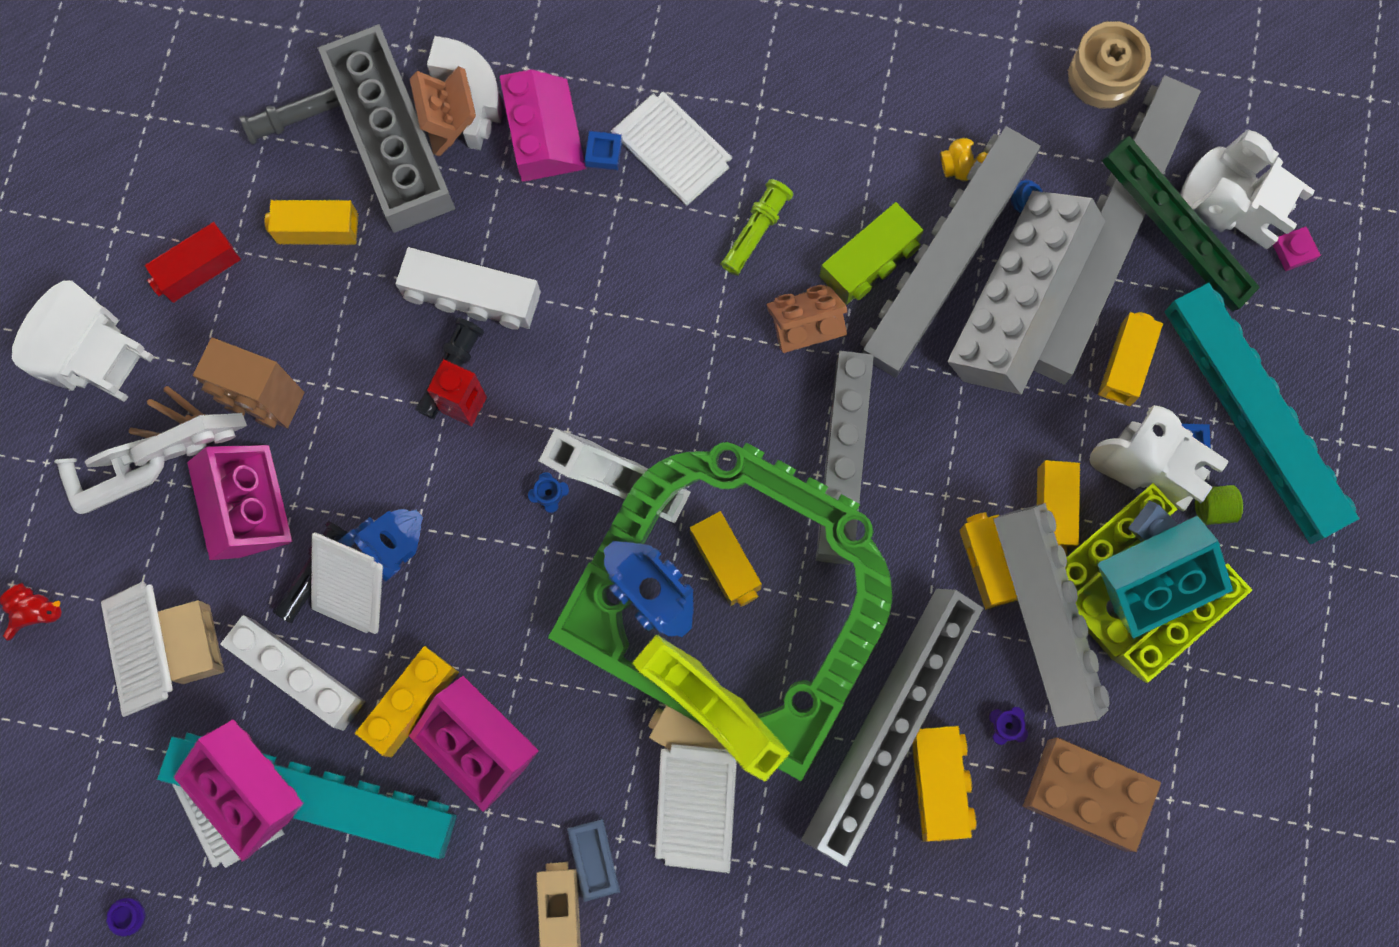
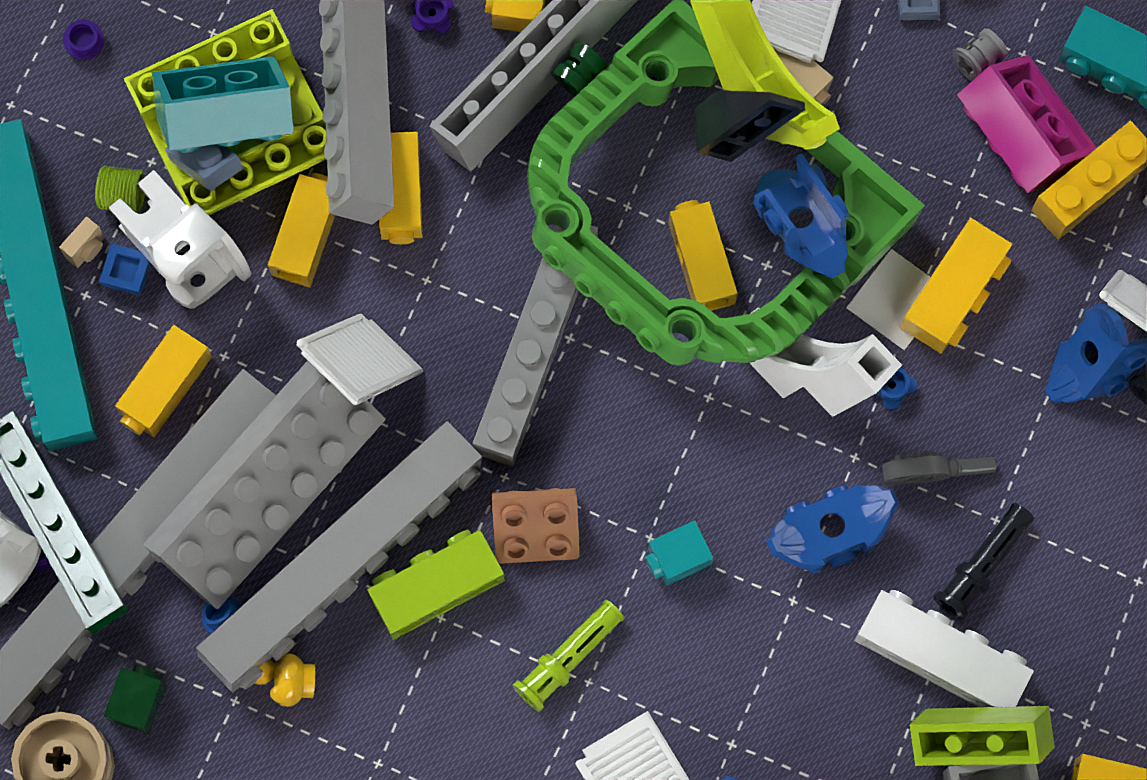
camera: 170 degrees left, 0 degrees up
(426, 221) = (982, 736): none -> lime brick
(457, 392) = (980, 508): red brick -> none
(503, 428) = (932, 468): none -> dark grey piece
(508, 583) = (957, 287): none -> yellow brick
(525, 796) = (979, 54): none -> light grey bush
(555, 567) = (889, 296): none -> white sticker
(598, 343) = (865, 516): none -> blue piece
(689, 317) = (678, 554): none -> teal brick
(720, 653) = (738, 120): none -> black slope
(869, 691) = (579, 68): none -> dark green wheel
(984, 396) = (358, 358): none -> white window
(1071, 122) = (135, 699): none -> dark green brick
(1234, 452) = (83, 243): none -> tan plate
(1294, 631) = (83, 39): none -> dark purple plate

